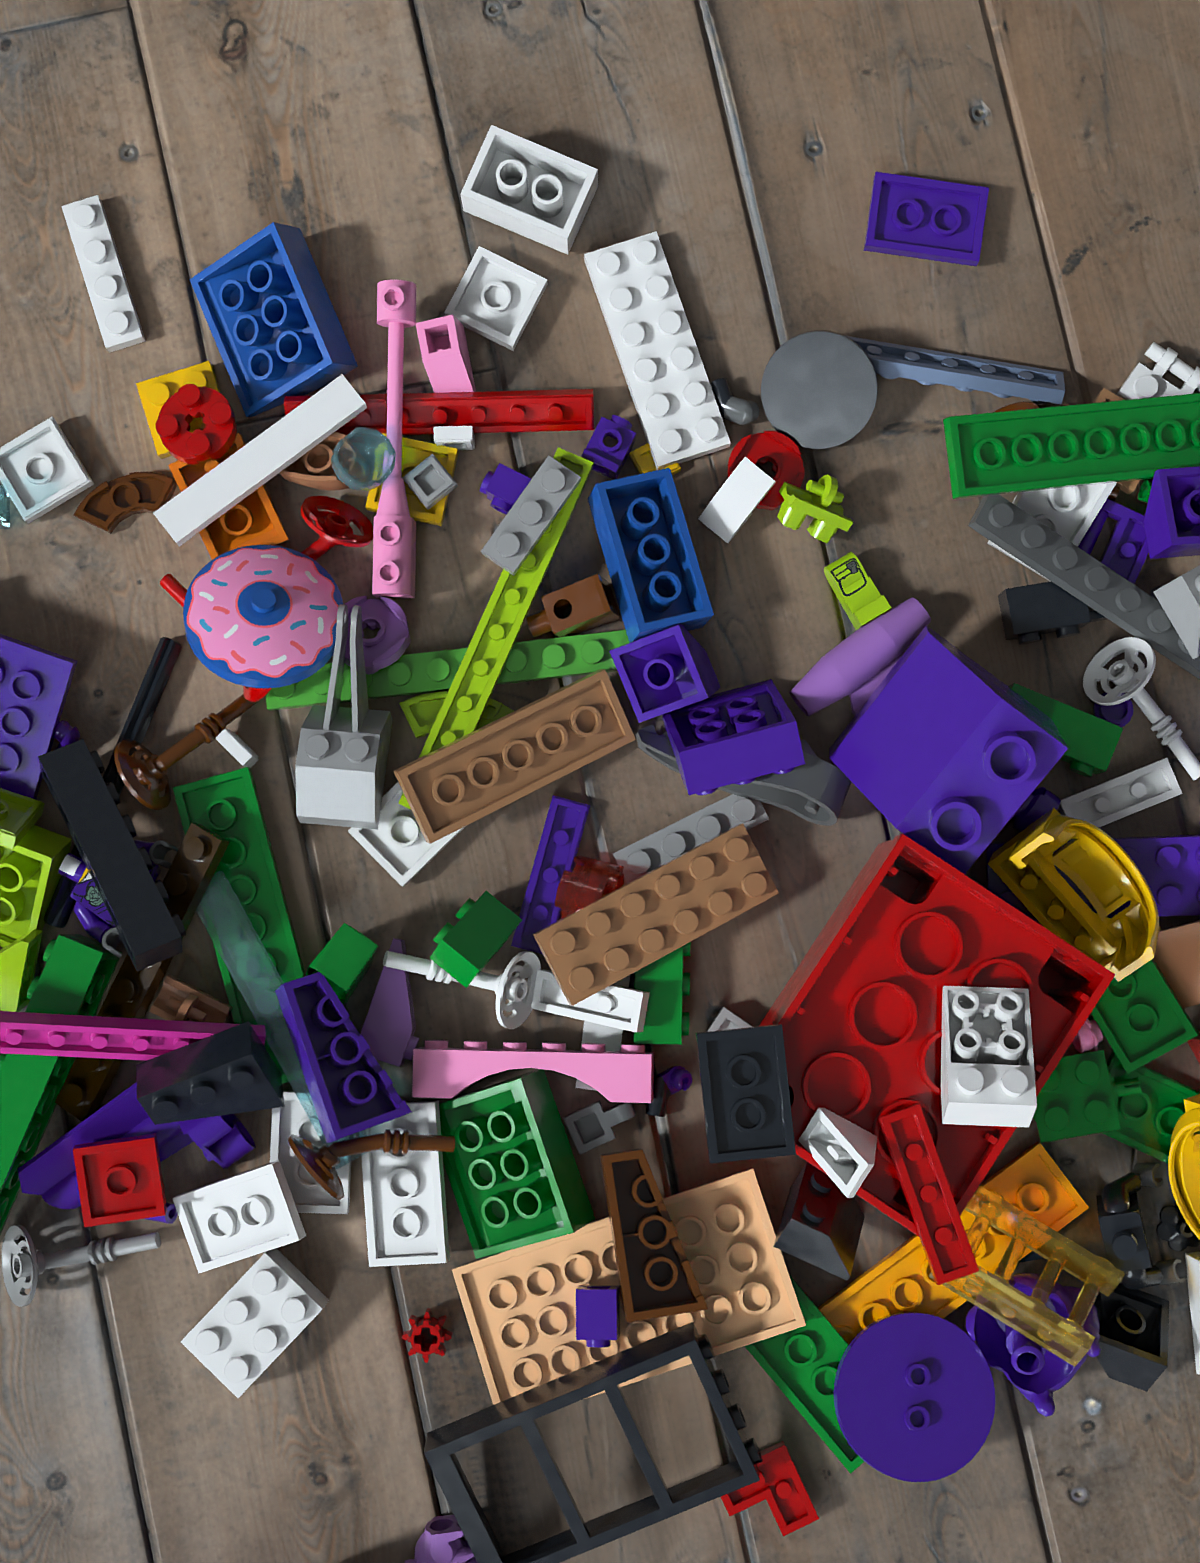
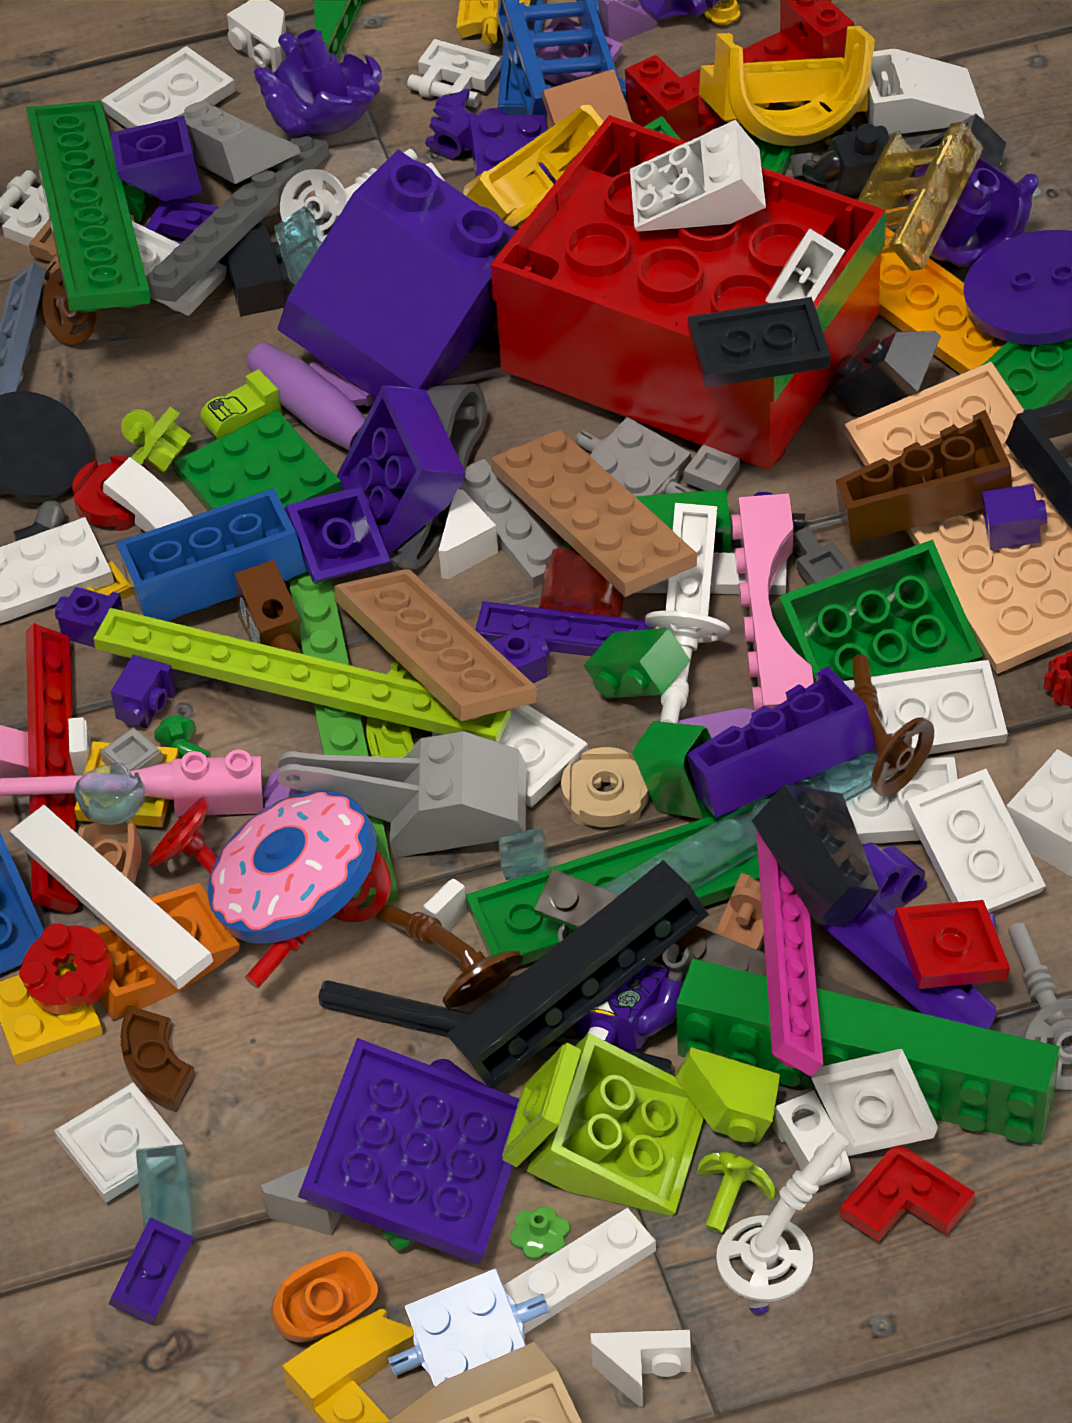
camera: 90 degrees left, 35 degrees down
(278, 820) = (523, 854): none -> clear light blue tile
(344, 881) = (600, 808): none -> tan plate
(460, 522) = (176, 732): none -> green plate
(512, 814) = (525, 653): none -> dark purple brick
(531, 515) = (170, 647): light grey plate -> none
(665, 794) = (467, 537): none -> white slope
(745, 961) = (639, 458): none -> light grey plate
(776, 605) = (255, 460): none -> green plate
(928, 1194) = (833, 210): red plate -> none
(1061, 657) = (297, 241): none -> clear light blue slope

